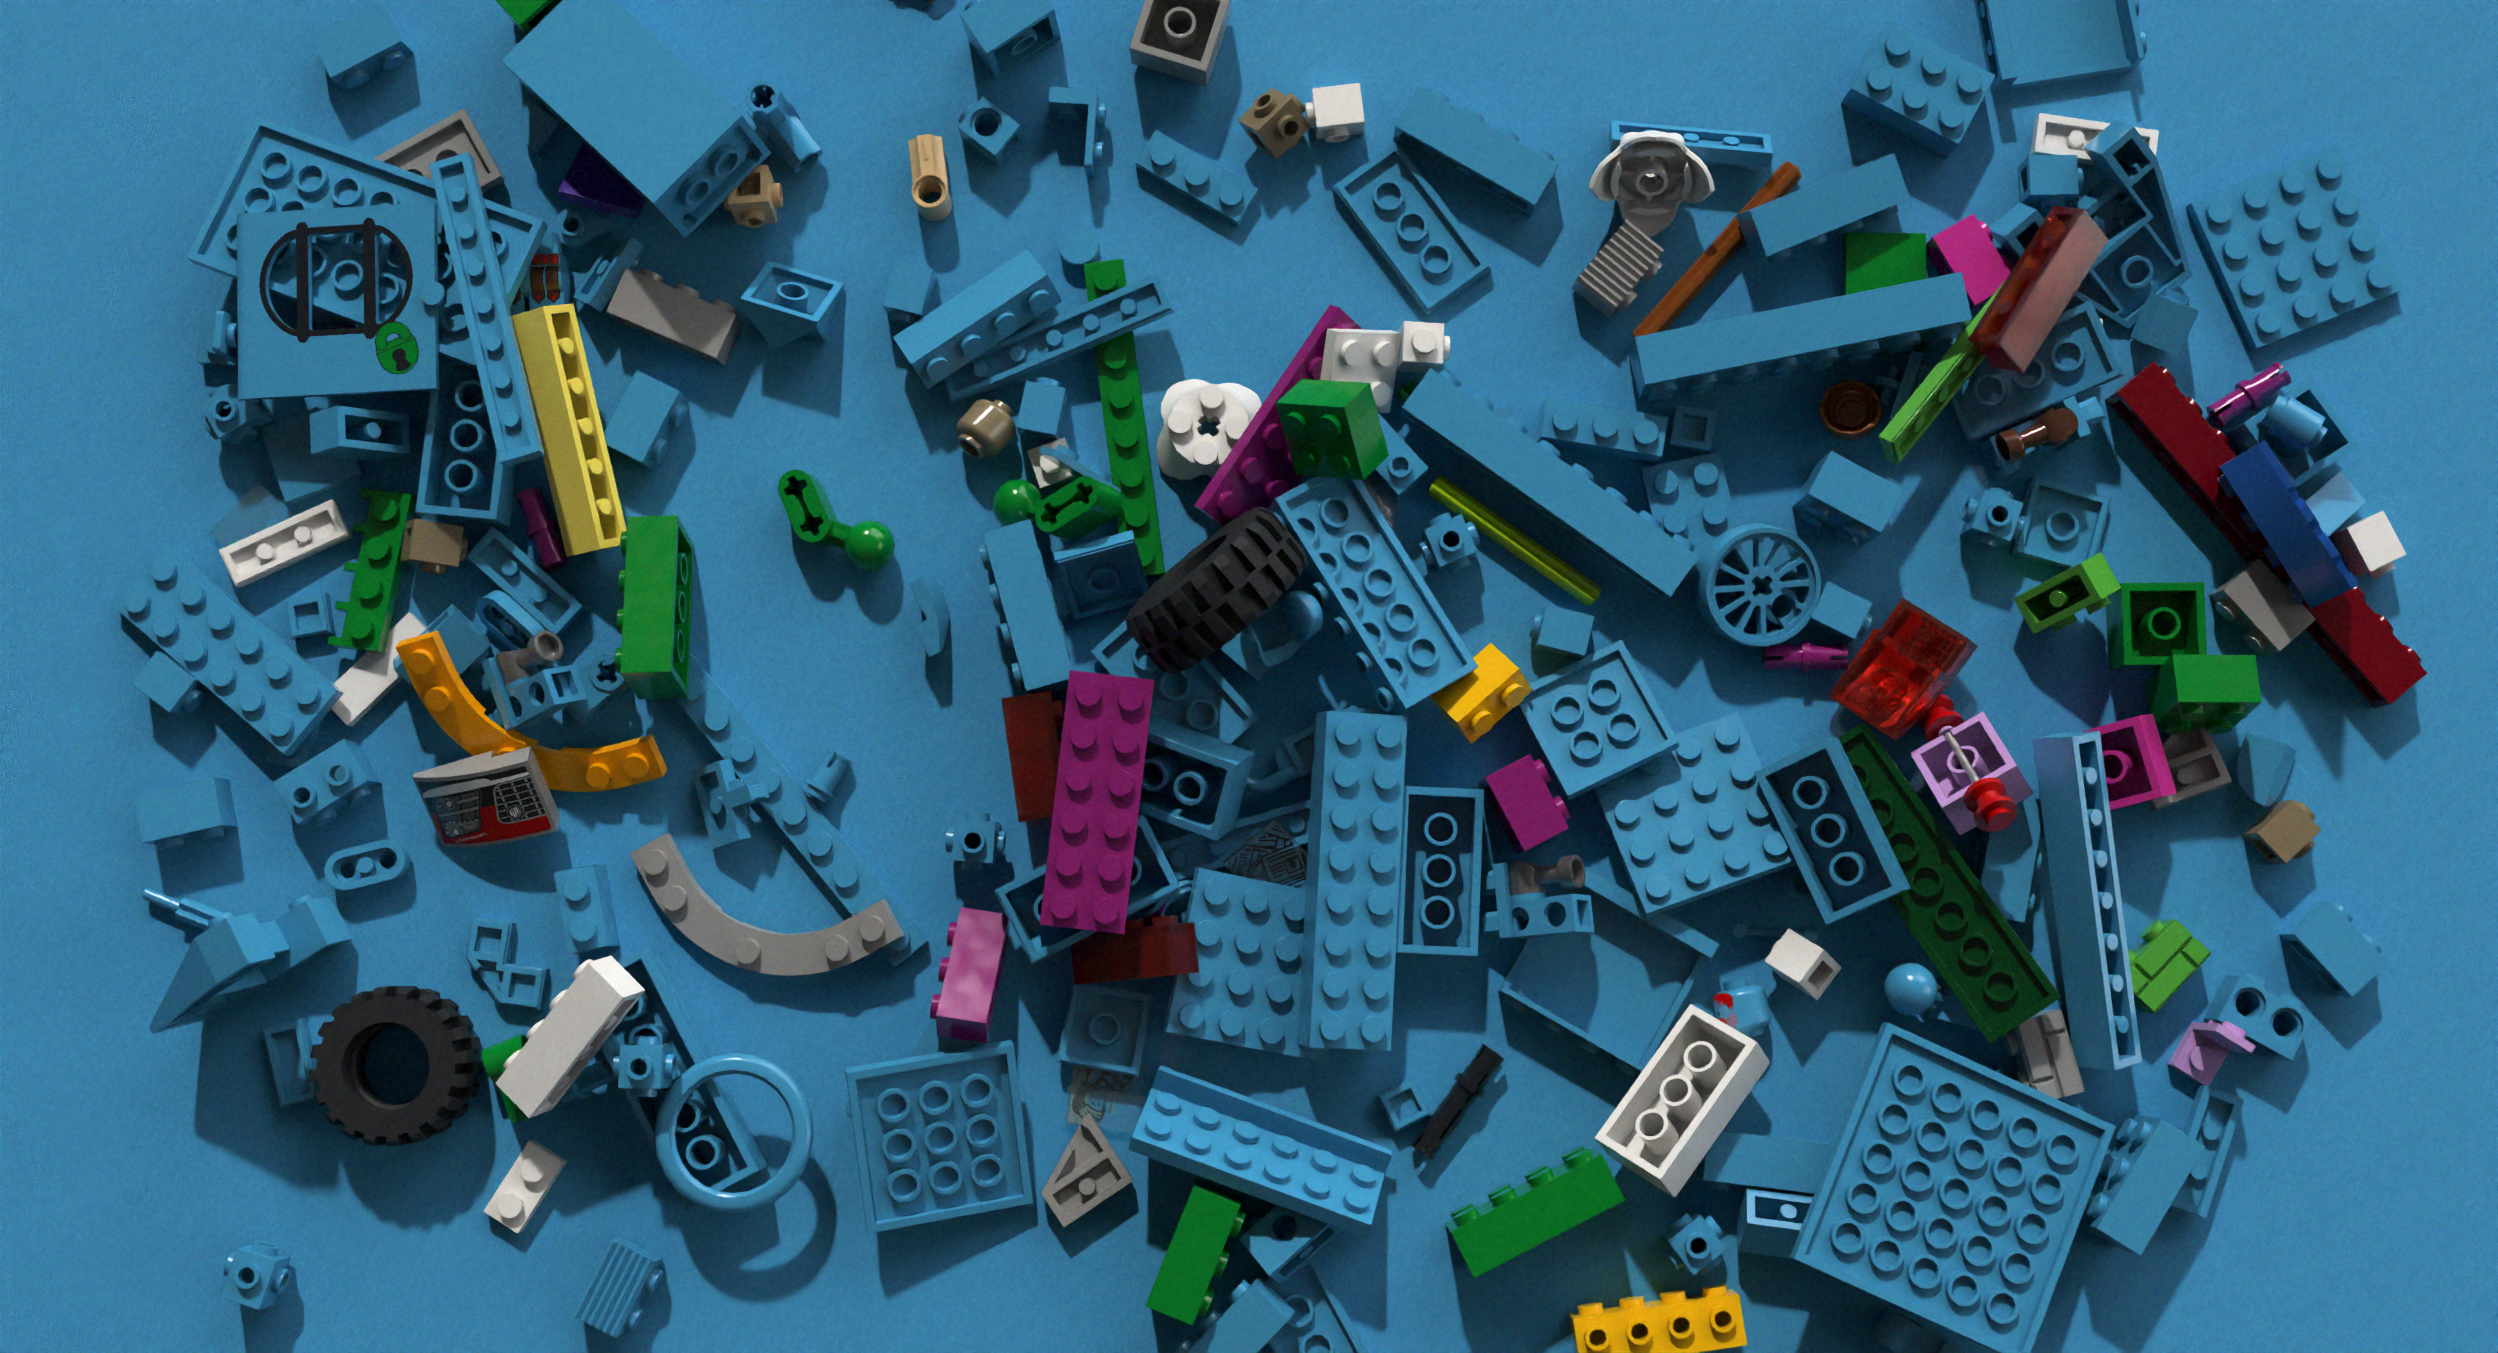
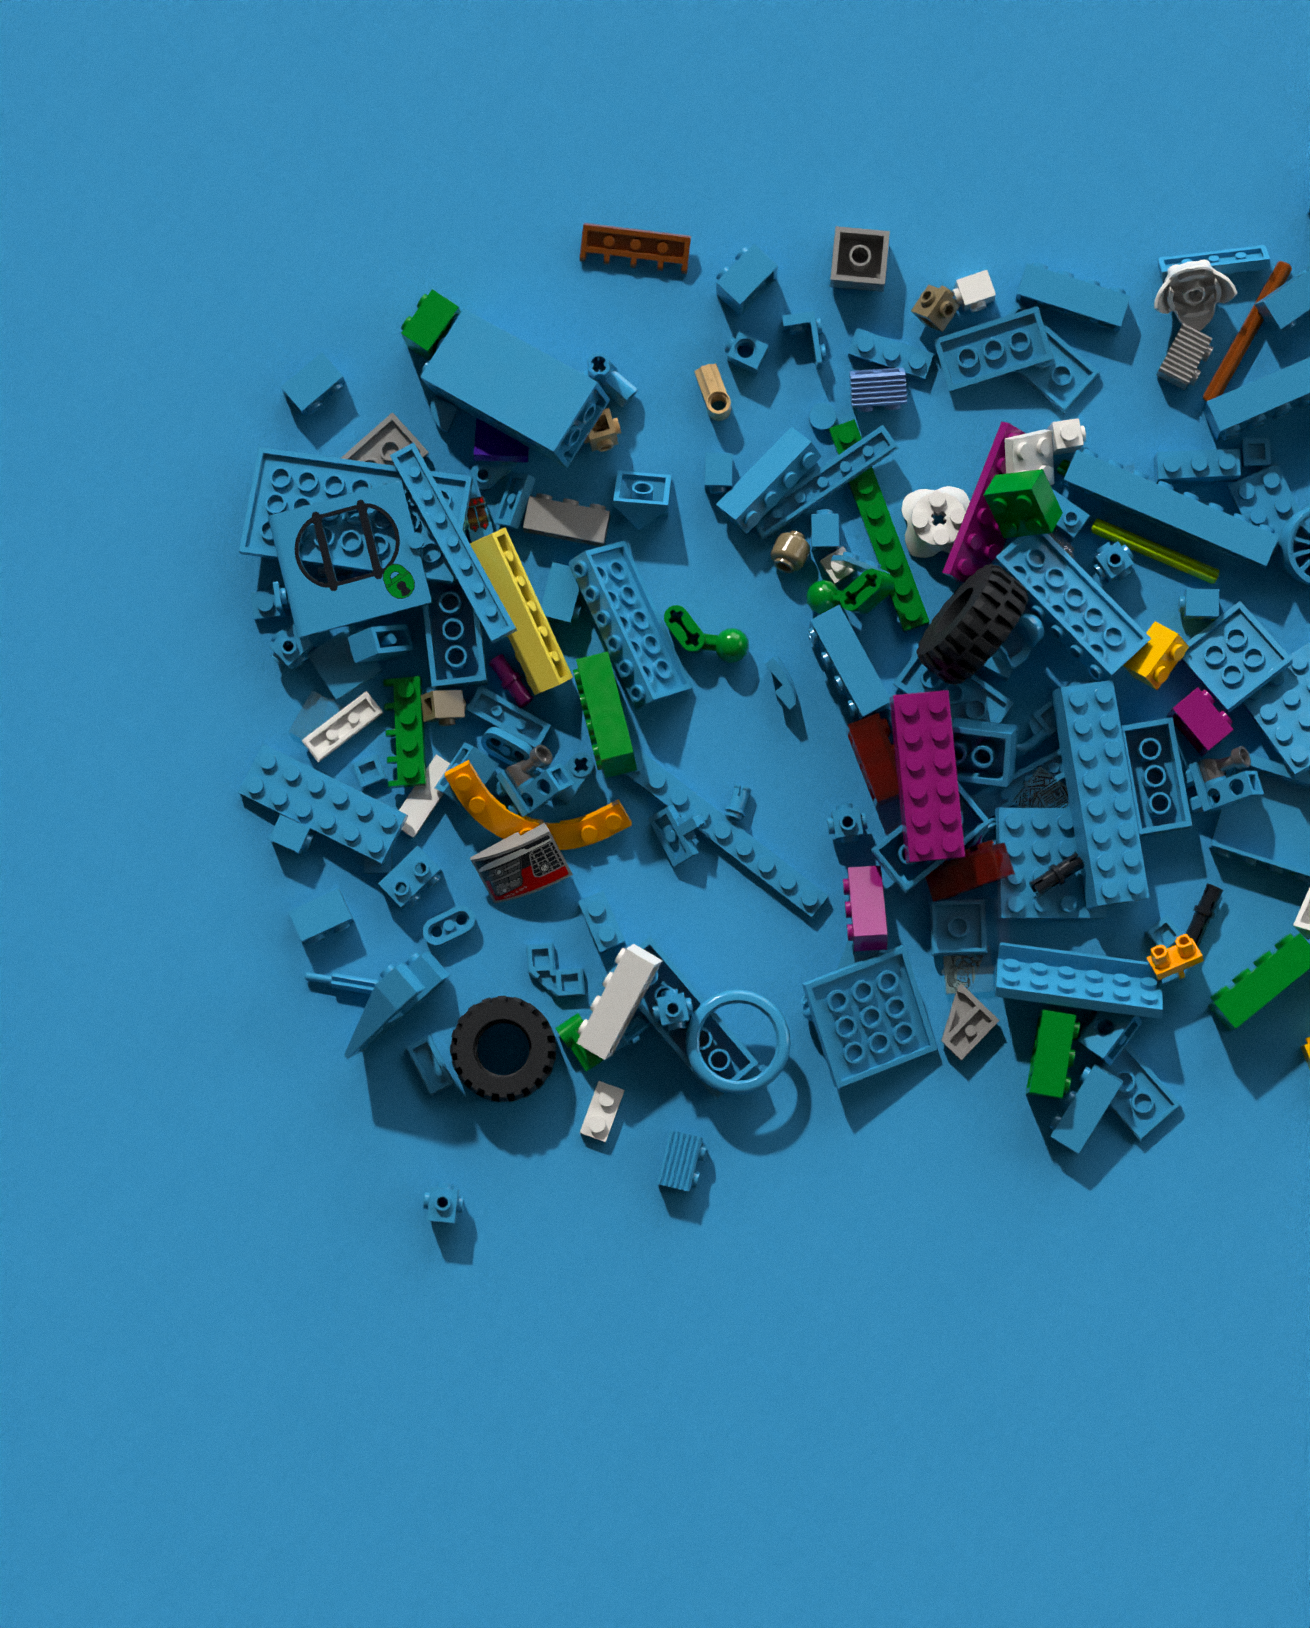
camera: 10 degrees left, 0 degrees up
(728, 483) = (629, 624): none -> dark azure bracket
(749, 945) = (715, 924): light grey plate -> none
(1101, 574) = (890, 631): dark azure tile -> none
(1165, 221) = (878, 388): none -> medium blue brick
(1261, 986) = (1056, 874): none -> black pin
(1344, 199) = (993, 349): none -> dark azure plate
(1410, 1147) = (1174, 959): none -> light orange hips

